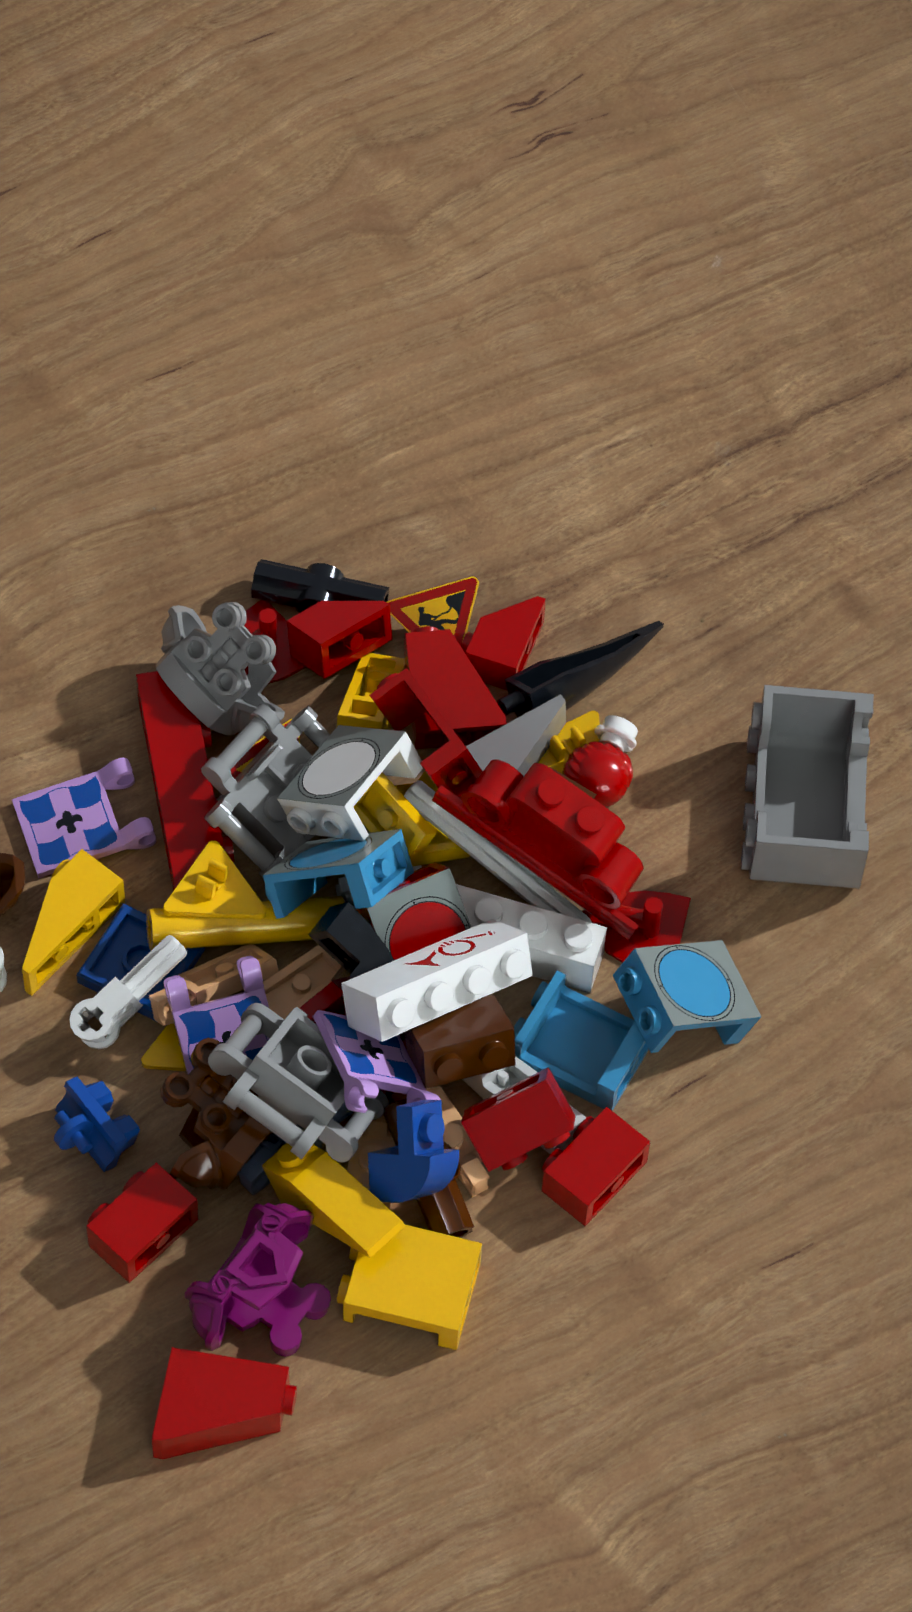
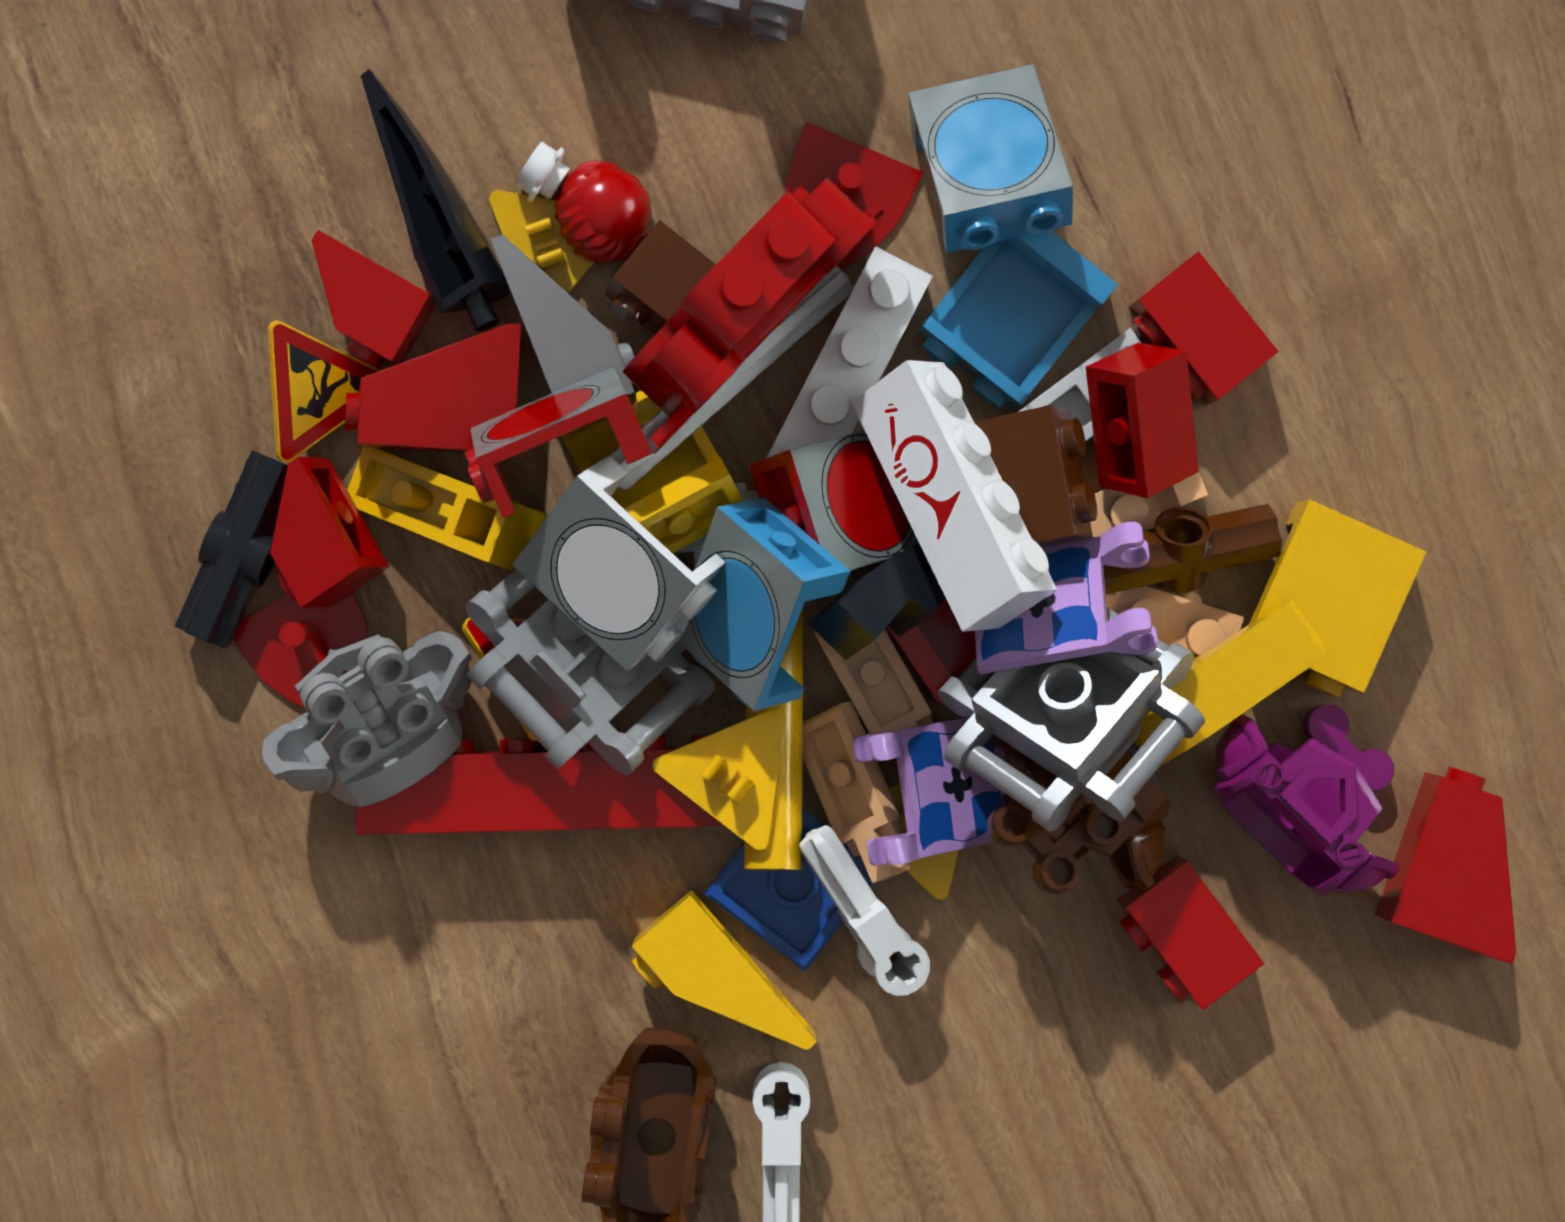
camera: 75 degrees left, 30 degrees up
(79, 817) = (561, 945): lavender flag -> none
(89, 1127) = (1060, 963): blue hips -> none
(419, 1161) = (1205, 573): blue brick -> none

